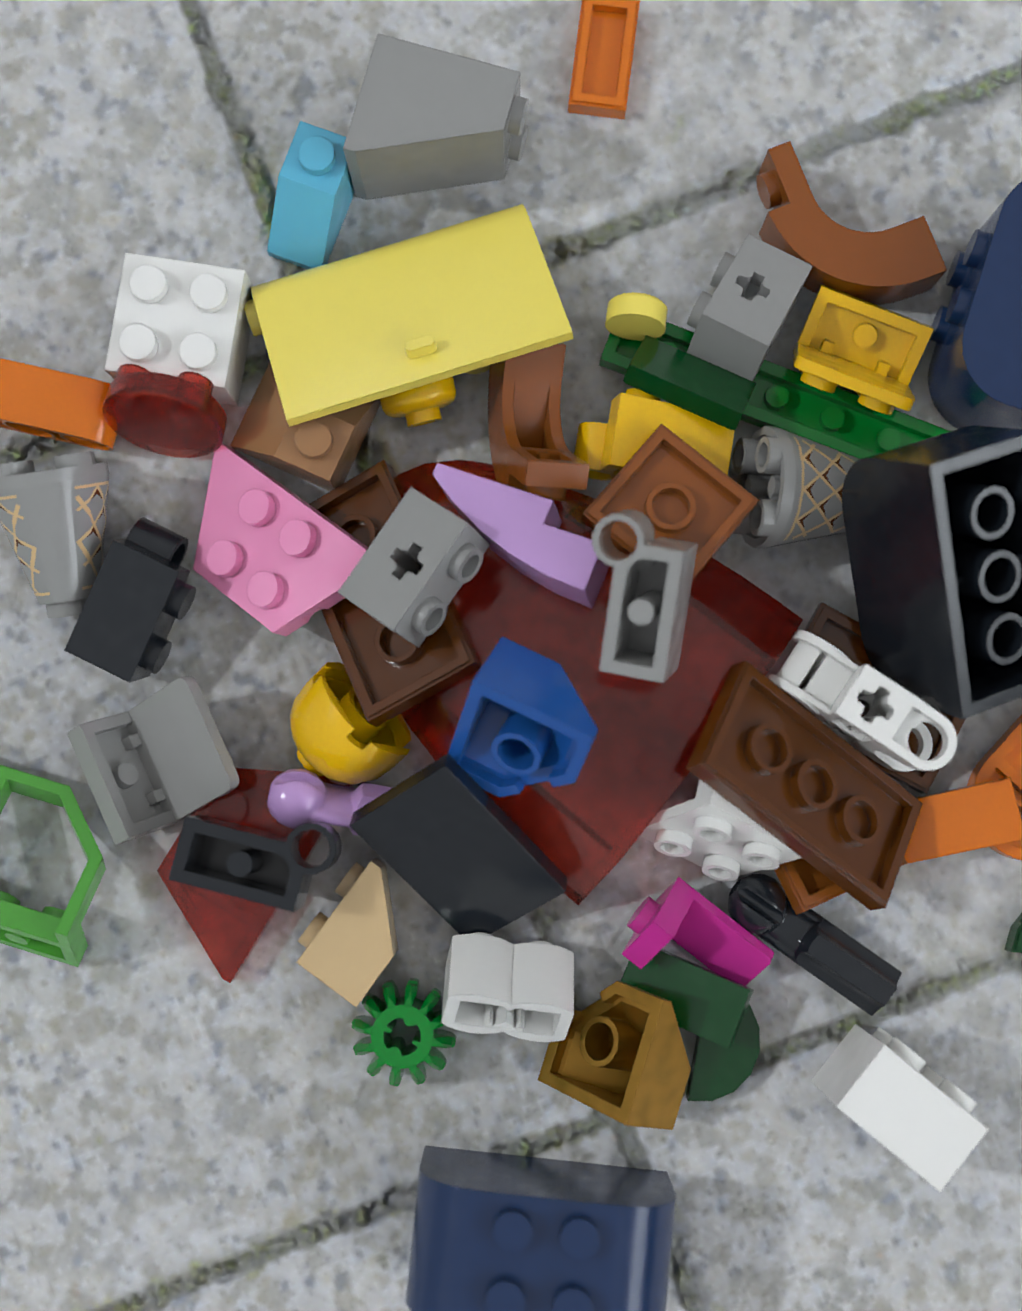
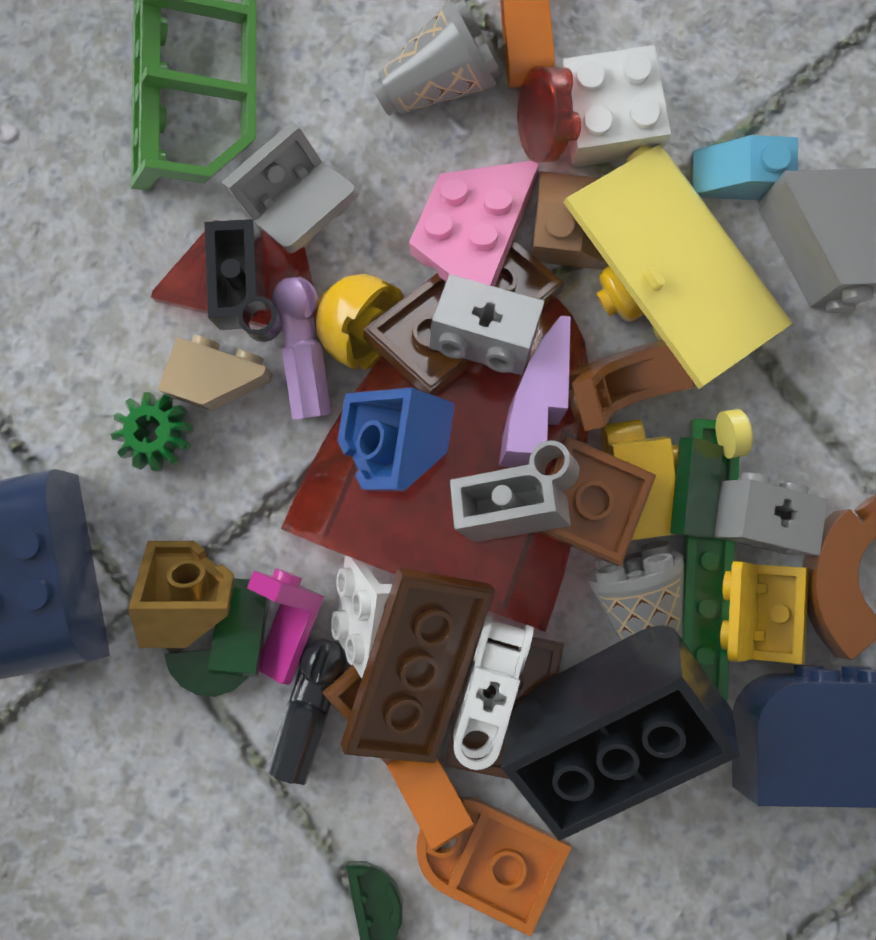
camera: 75 degrees right, 0 degrees up
(134, 603) = (400, 139): black hinge -> none
(458, 849) = (292, 426): black tile -> none
(508, 988) = (205, 495): white brick -> none
(908, 1112) = (202, 810): white brick -> none

